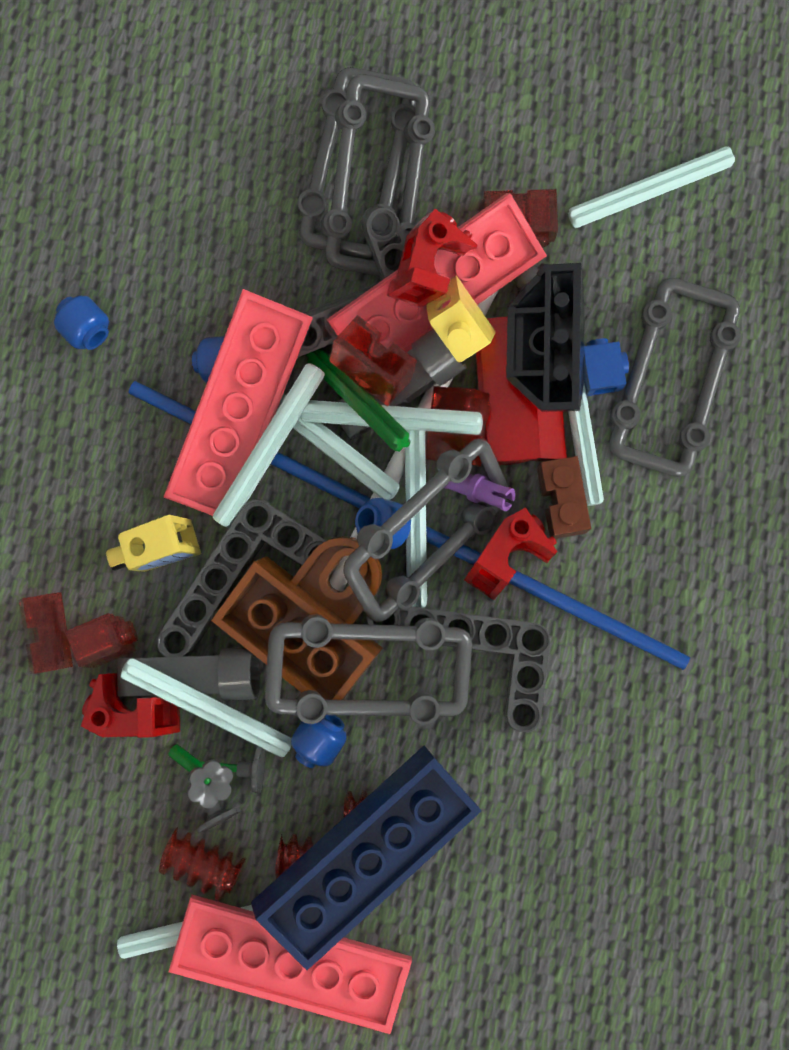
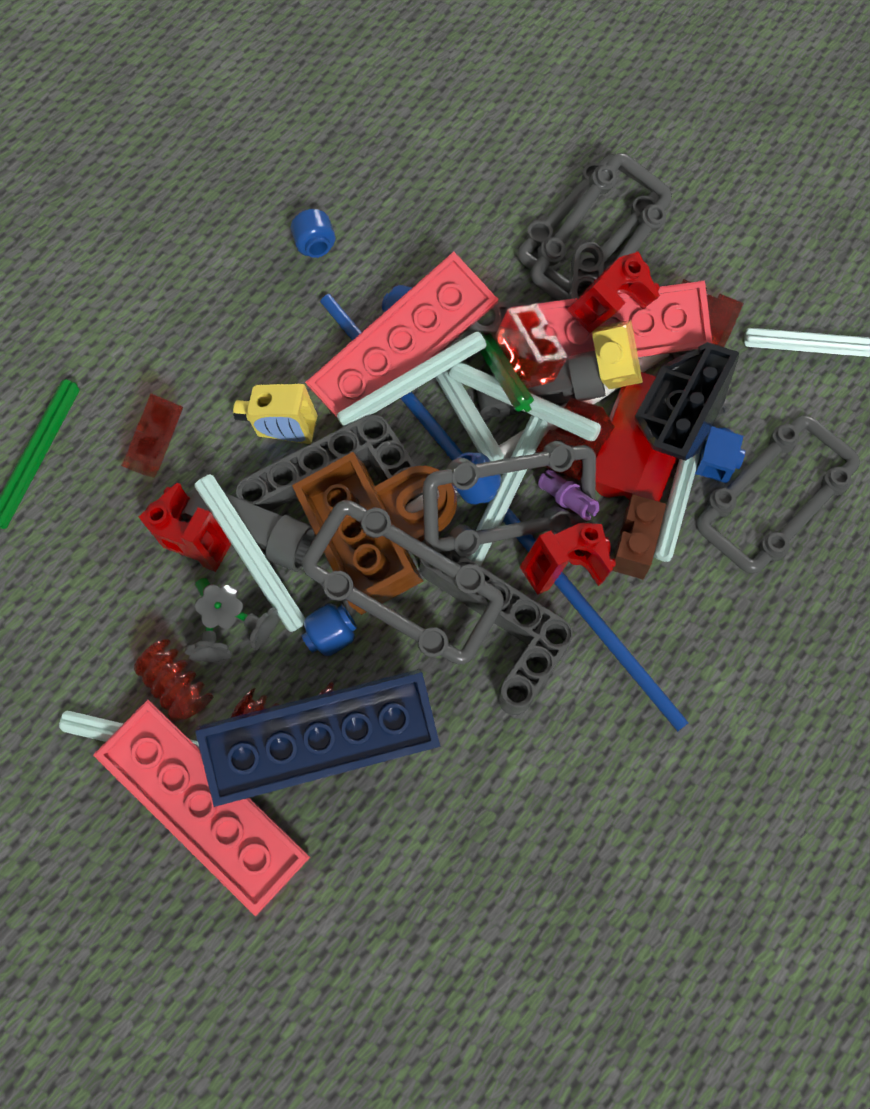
camera: 20 degrees right, 15 degrees down
(101, 640) = (193, 456): clear red brick -> none

